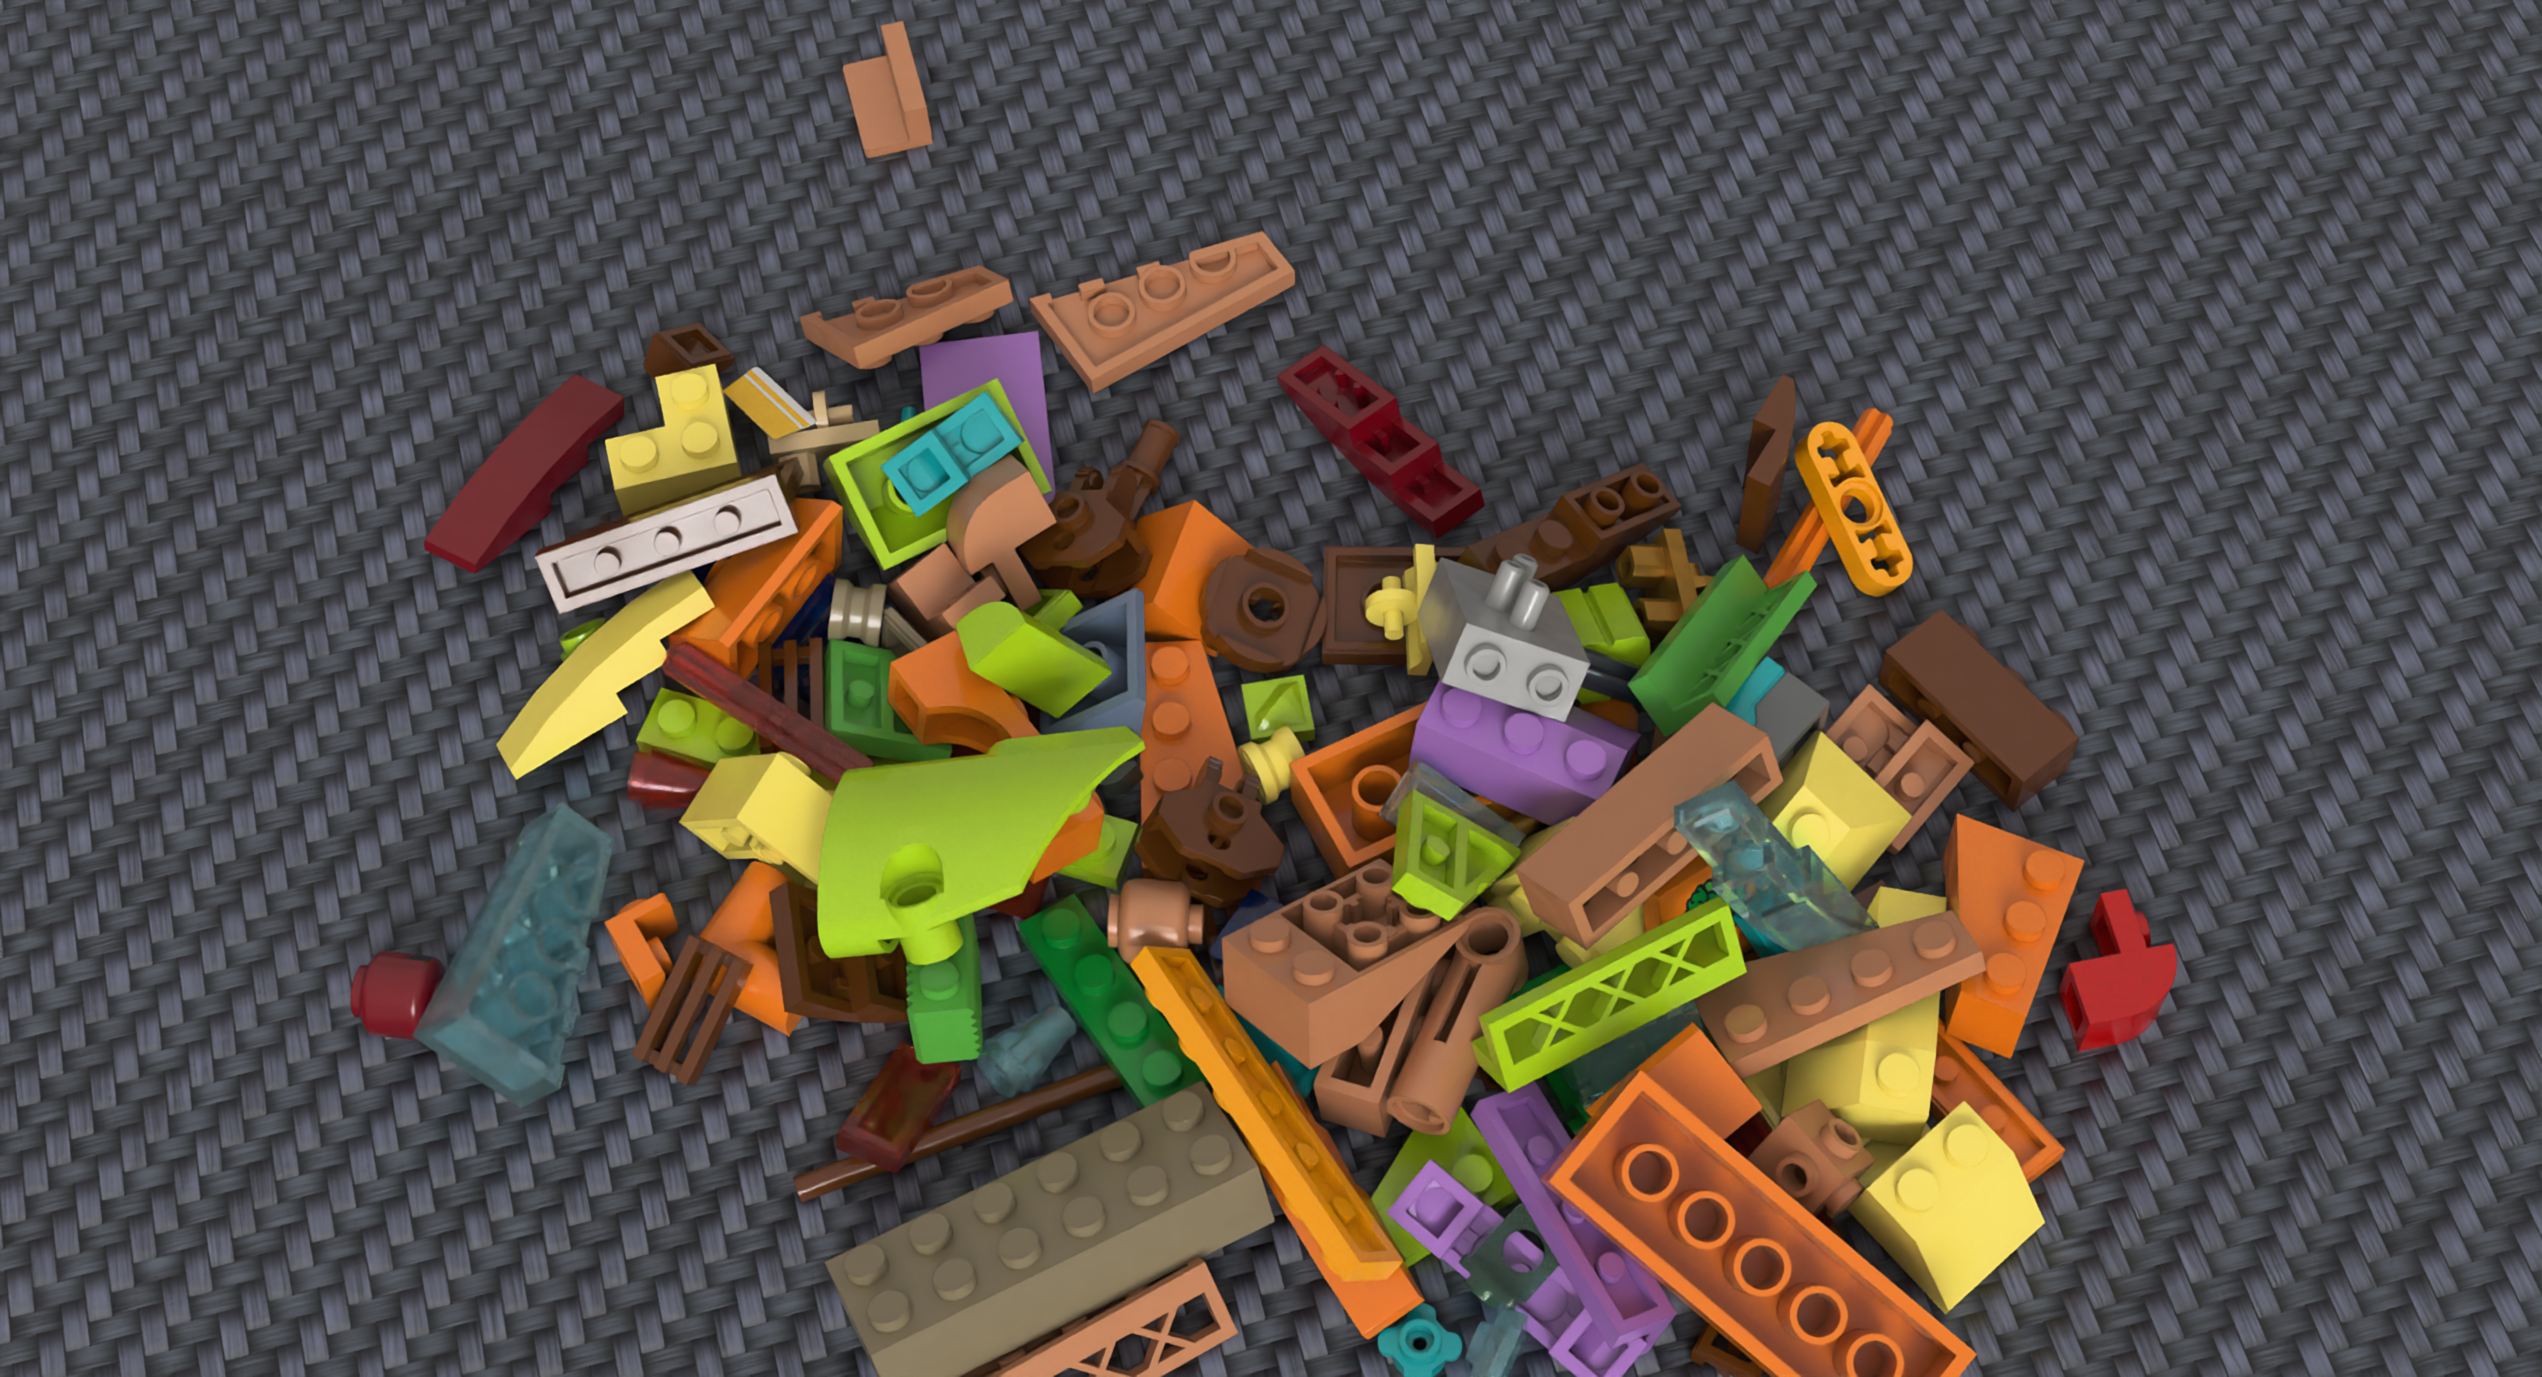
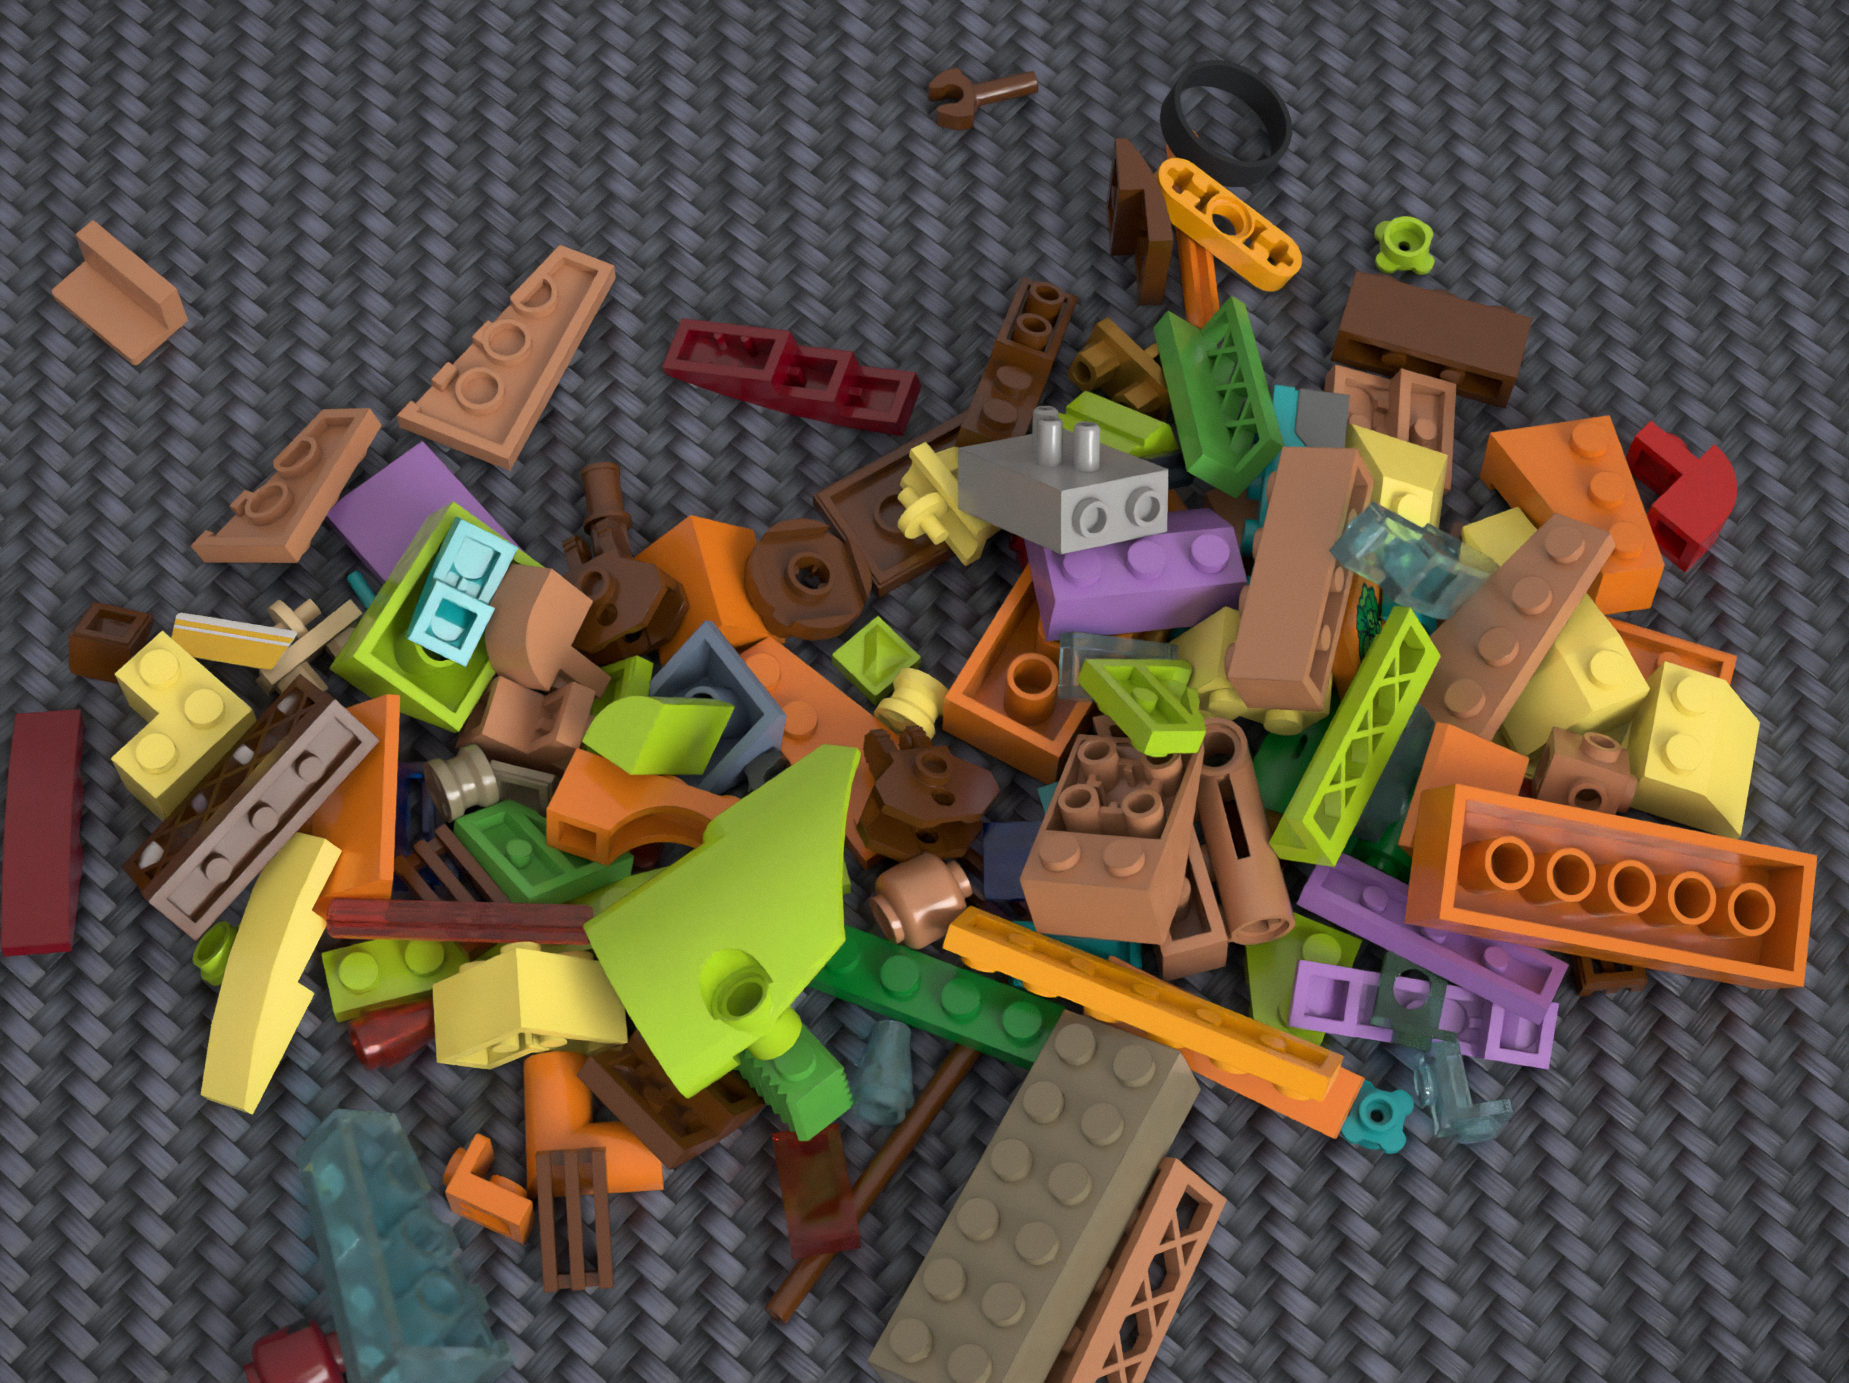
camera: 40 degrees left, 5 degrees up
(1717, 289) = (973, 95): none -> reddish brown bar
(1958, 388) = (1249, 88): none -> black tyre
(2019, 603) = (1404, 232): none -> lime plate

